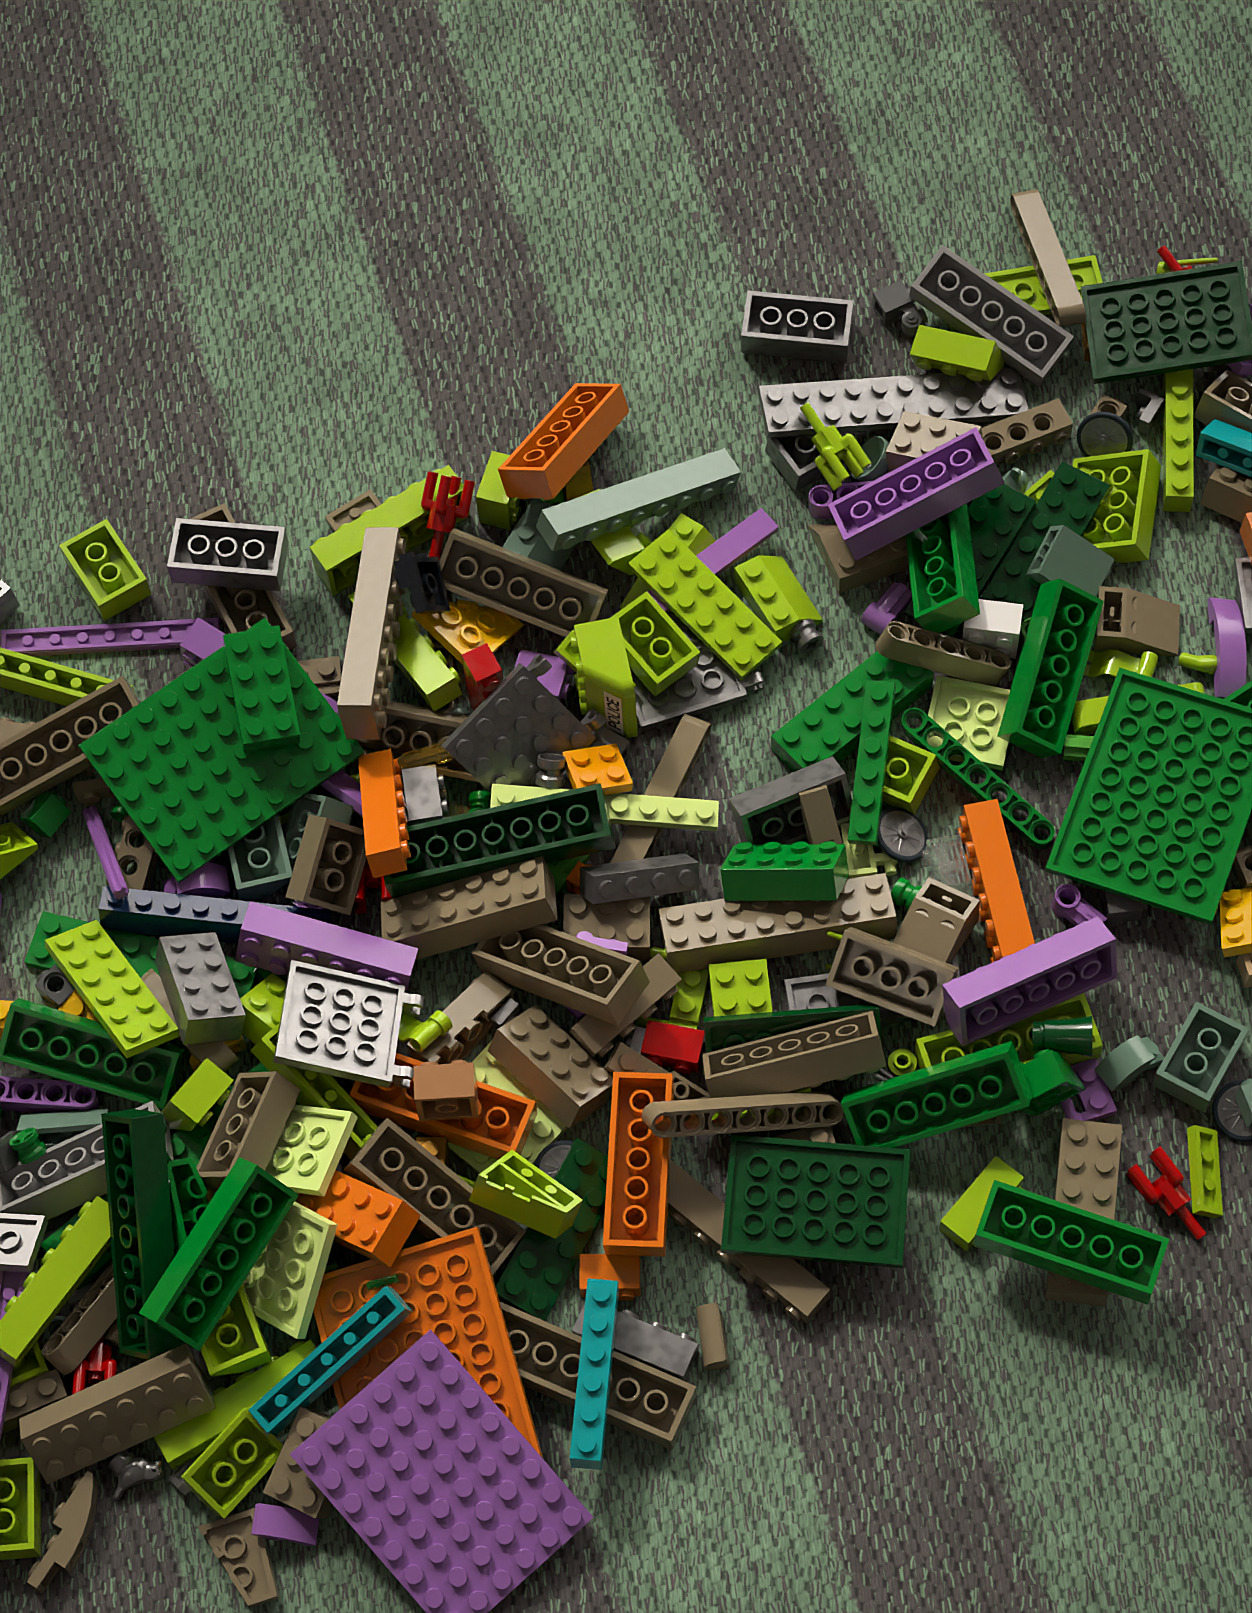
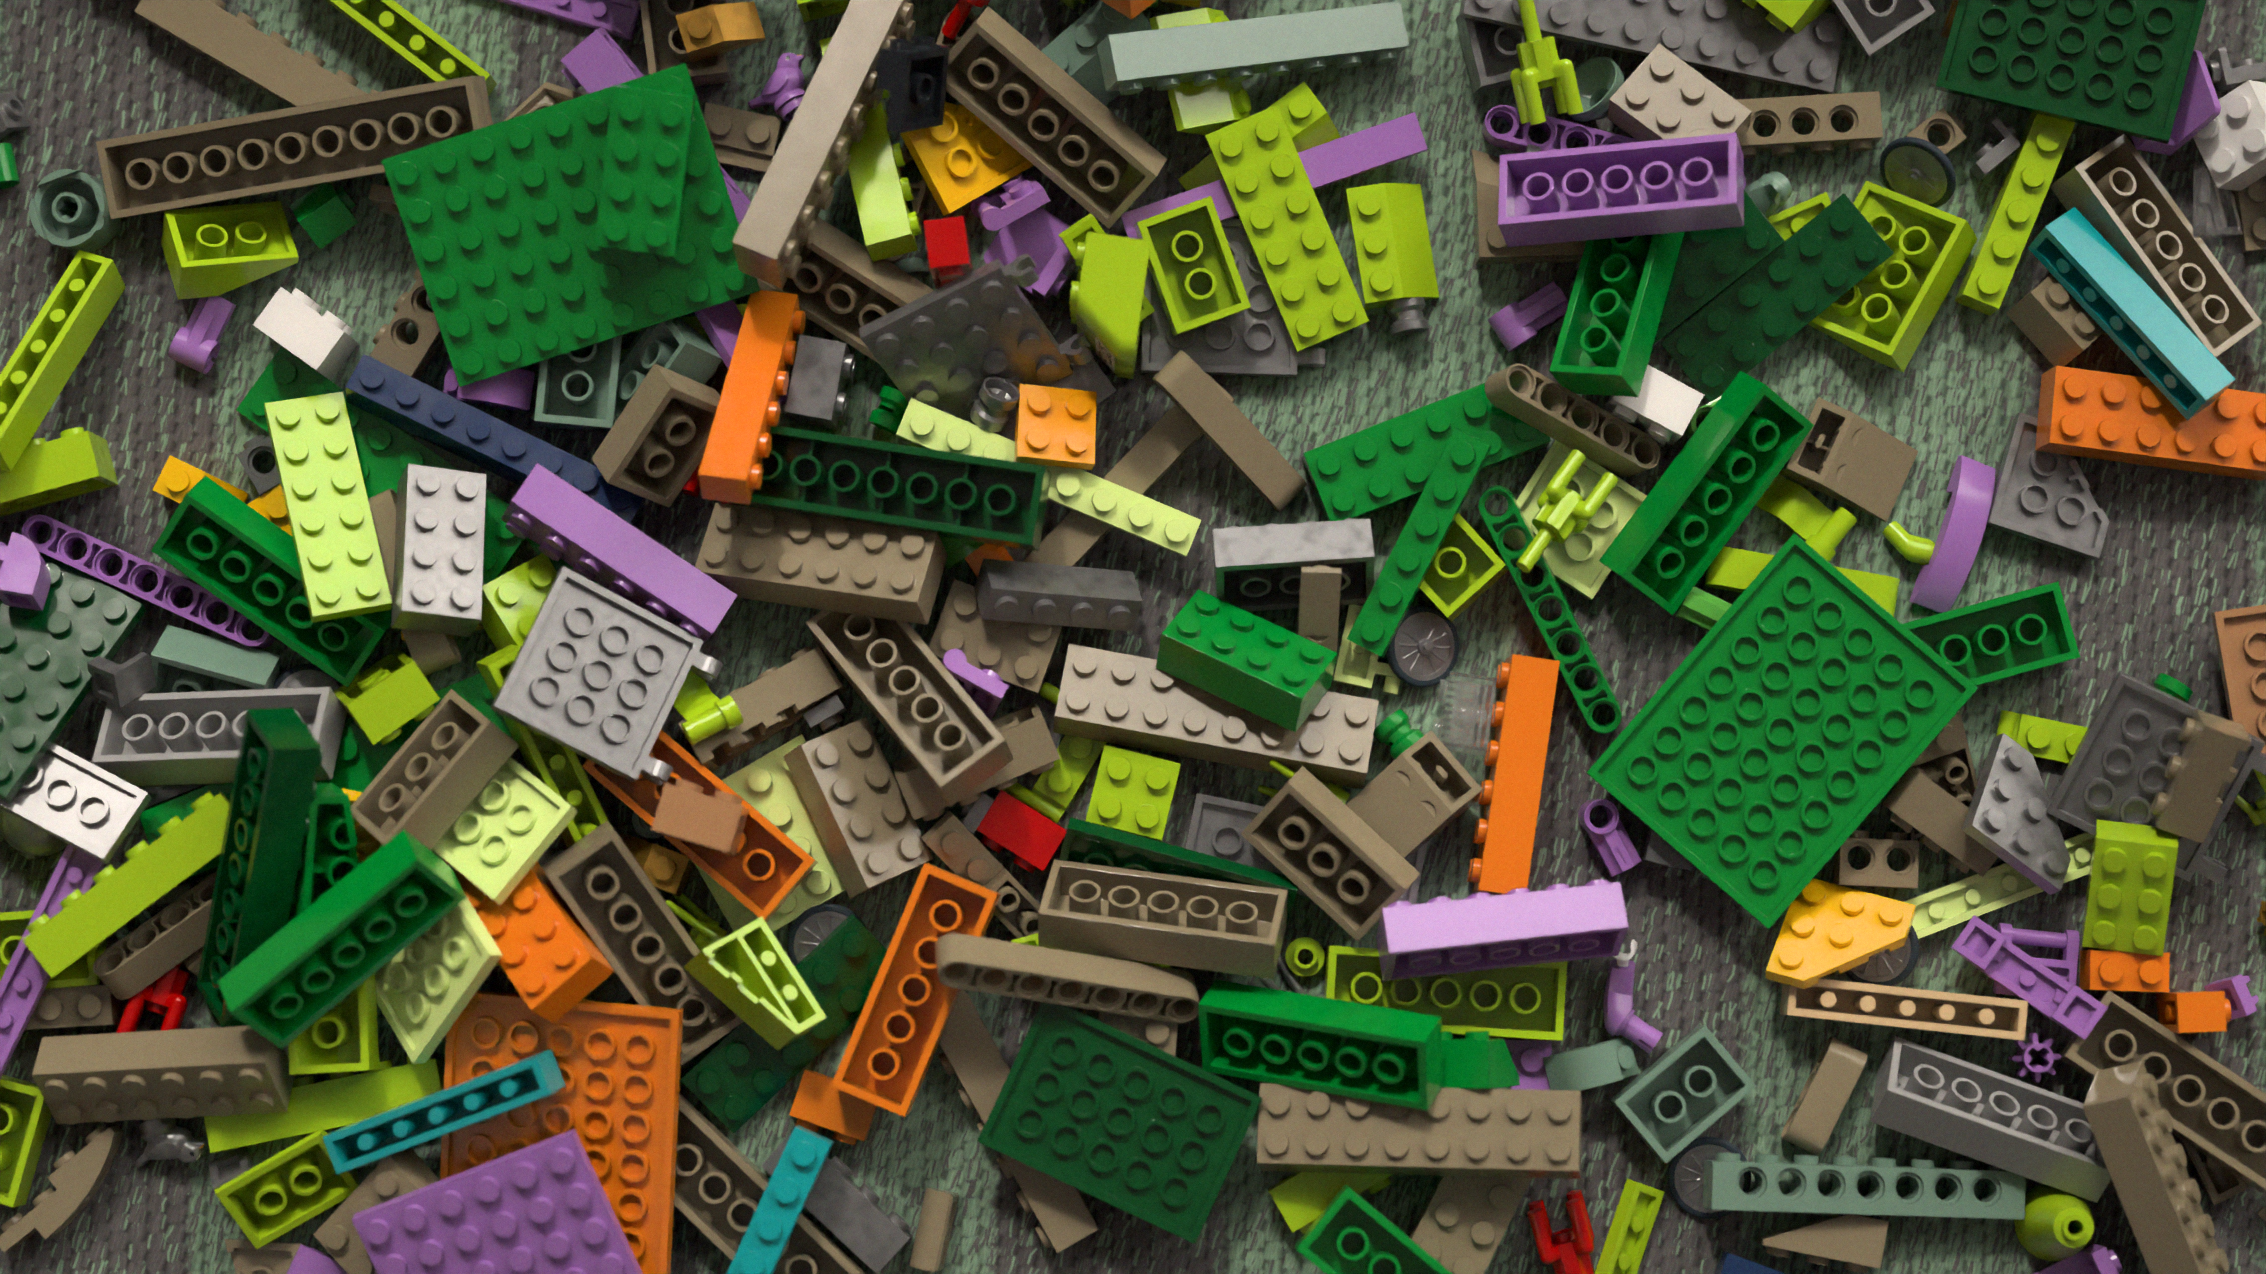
camera: 15 degrees right, 20 degrees up
(28, 1145) = (158, 682): green wheel -> none
(58, 889) = (297, 326): none -> white brick
(105, 852) = (381, 303): medium lavender axle -> none
(278, 602) = (719, 29): none -> pearl gold slope
(333, 636) = (784, 87): none -> medium lavender animal
(375, 1284) = (536, 1034): green leg -> none
(424, 755) = (836, 322): clear yellow plate -> none
(516, 645) = (1013, 201): none -> medium lavender plate
(715, 738) = (1229, 431): none -> dark tan beam
(959, 708) = (1564, 509): none -> lime plant
(1031, 1138) = (1458, 1135): none -> dark tan brick
(1064, 1036) = (1515, 1018): dark green plant -> none
(1070, 559) = (1792, 351): sand green brick -> none
(1132, 1016) = (1618, 1004): none -> medium lavender arm

